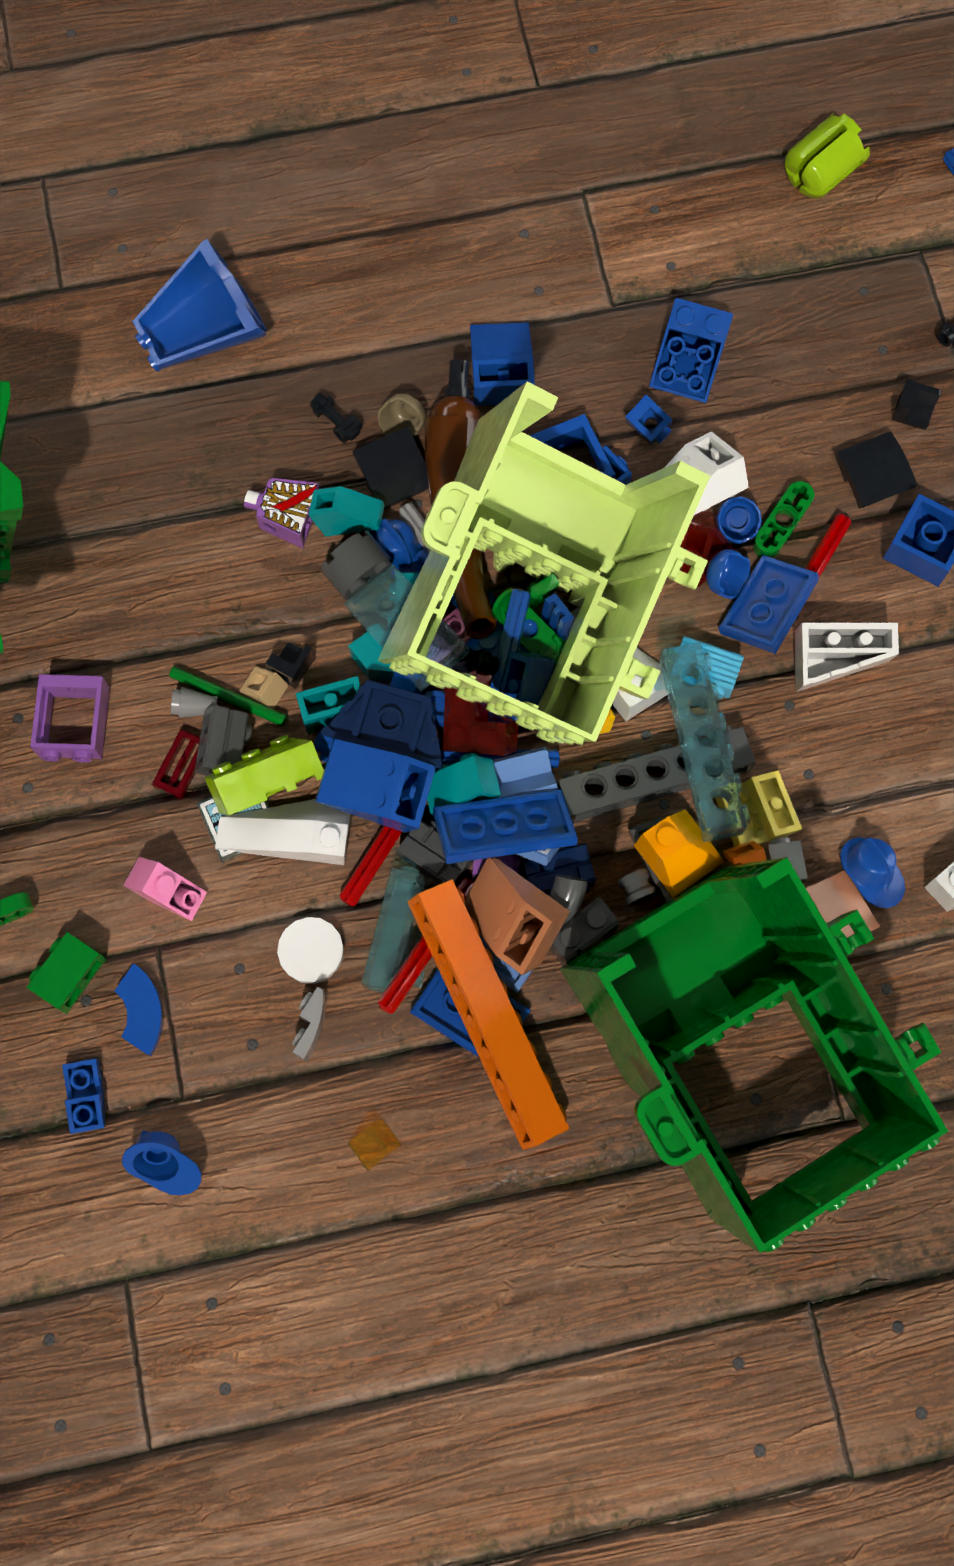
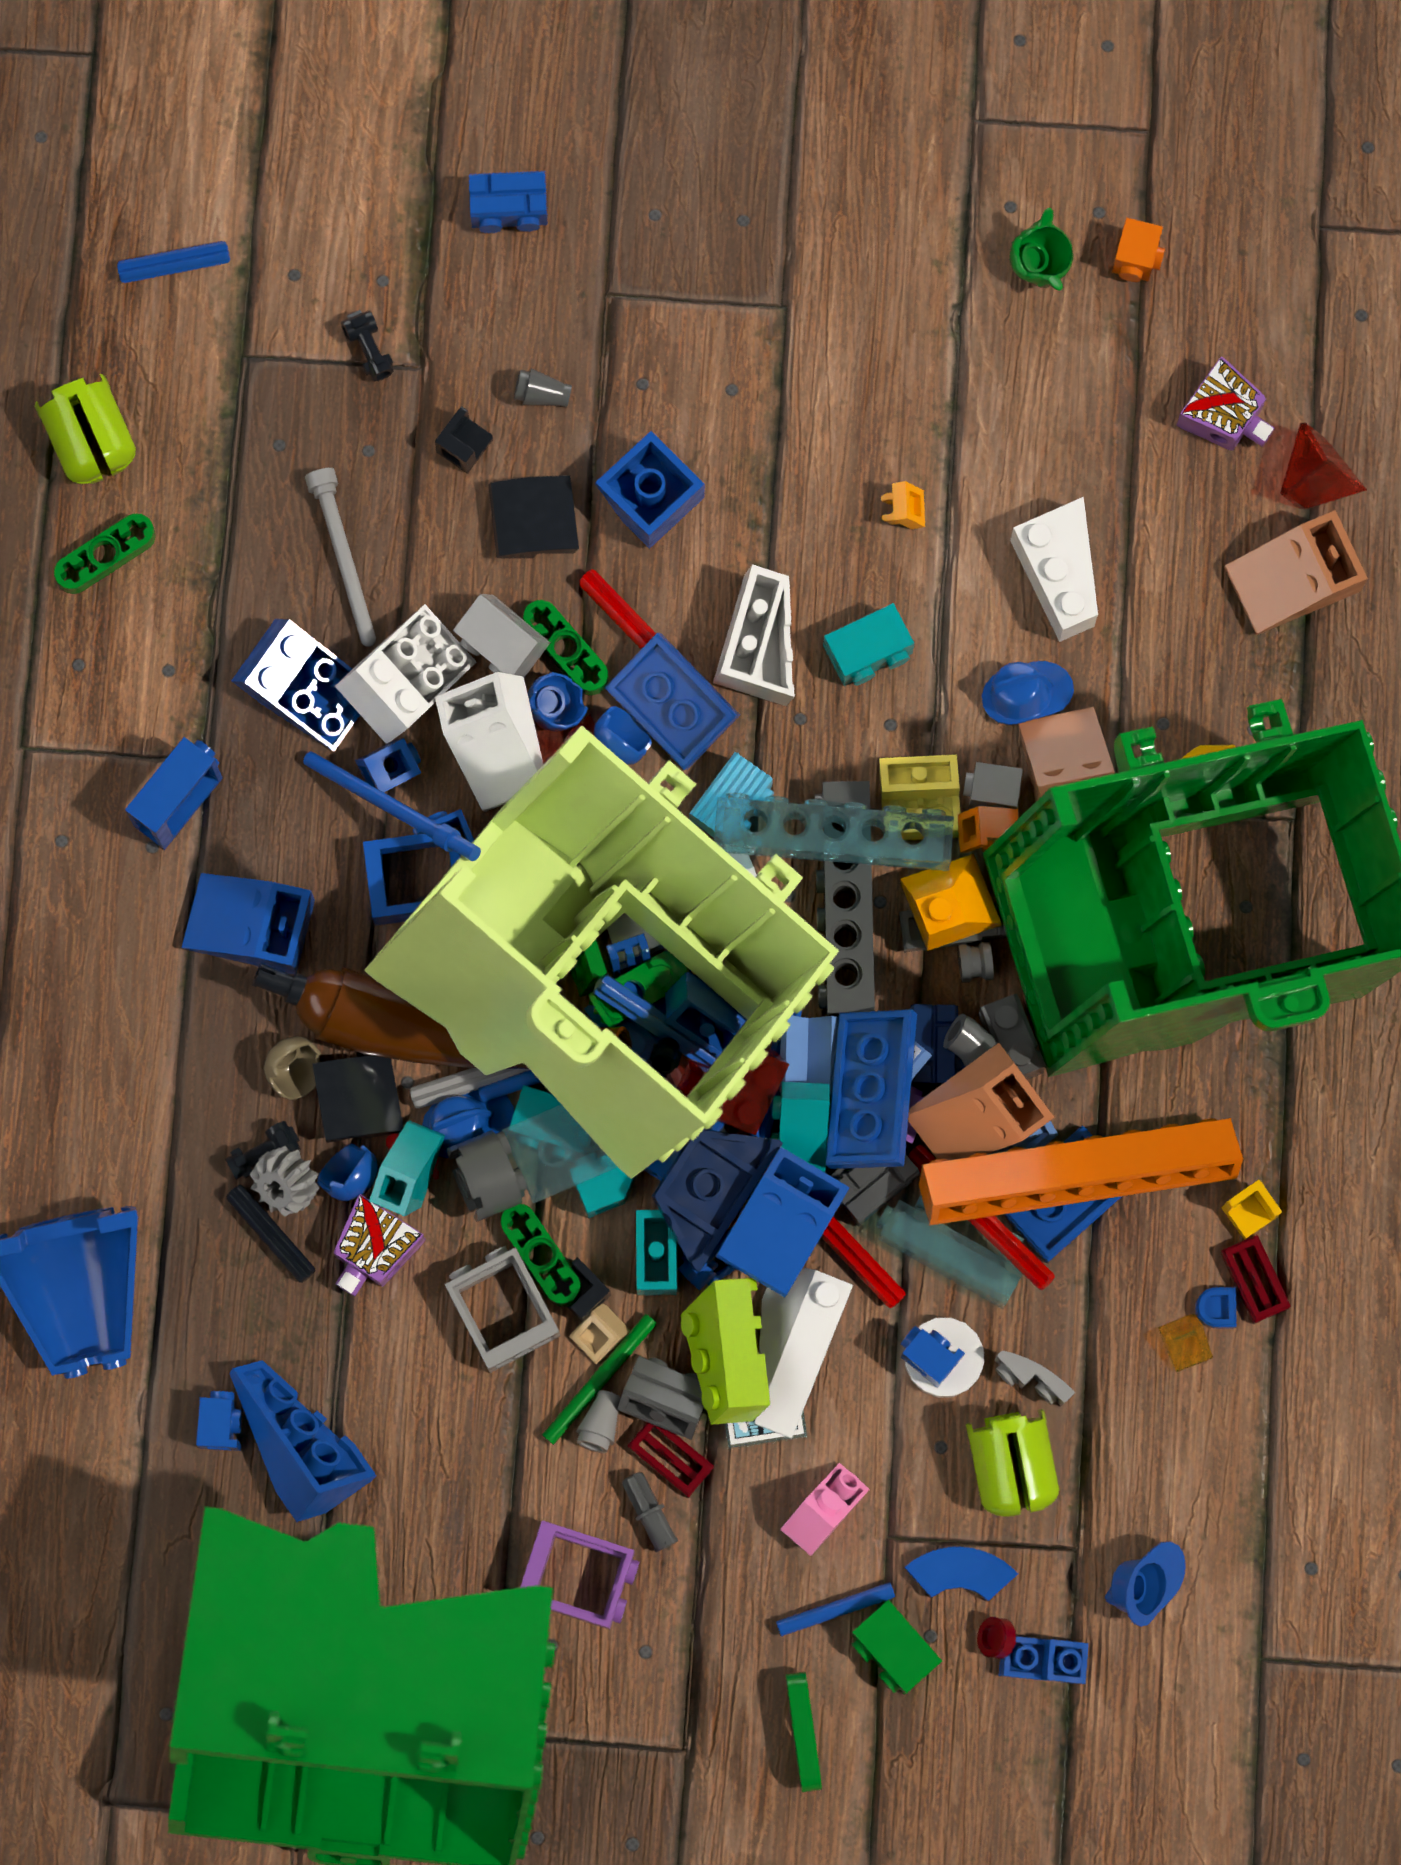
camera: 75 degrees left, 5 degrees up
(90, 920) = (835, 1609): none -> blue bar
(91, 1050) = (996, 1637): none -> dark red tile
(120, 503) = (302, 1455): none -> blue wedge
(127, 441) = (218, 1422): none -> blue brick
(133, 758) = (649, 1511): none -> dark grey axle
(225, 606) = (520, 1345): none -> light grey window
(234, 1025) = (995, 1467): none -> lime cylinder
(277, 440) = (270, 1233): none -> black axle
(304, 934) = (930, 1354): none -> blue brick
(312, 613) = (566, 1273): none -> green beam
(315, 432) = (284, 1181): none -> light grey gear
(333, 474) = (349, 1173): none -> blue hair
(410, 1163) = (1217, 1308): none -> blue tile
(419, 1209) = (1269, 1310): none -> dark red tile
(498, 1168) = (1251, 1209): none -> yellow panel
(575, 294) = (175, 792): none -> blue window
(603, 451) = (442, 835): none -> blue bar
(726, 407) = (405, 674): none -> white slope
(736, 188) = (75, 559): none -> green beam
(774, 466) = (500, 636): none -> light grey brick
(845, 322) = (323, 486): none -> light grey piece
(866, 736) = (869, 645): none -> teal brick

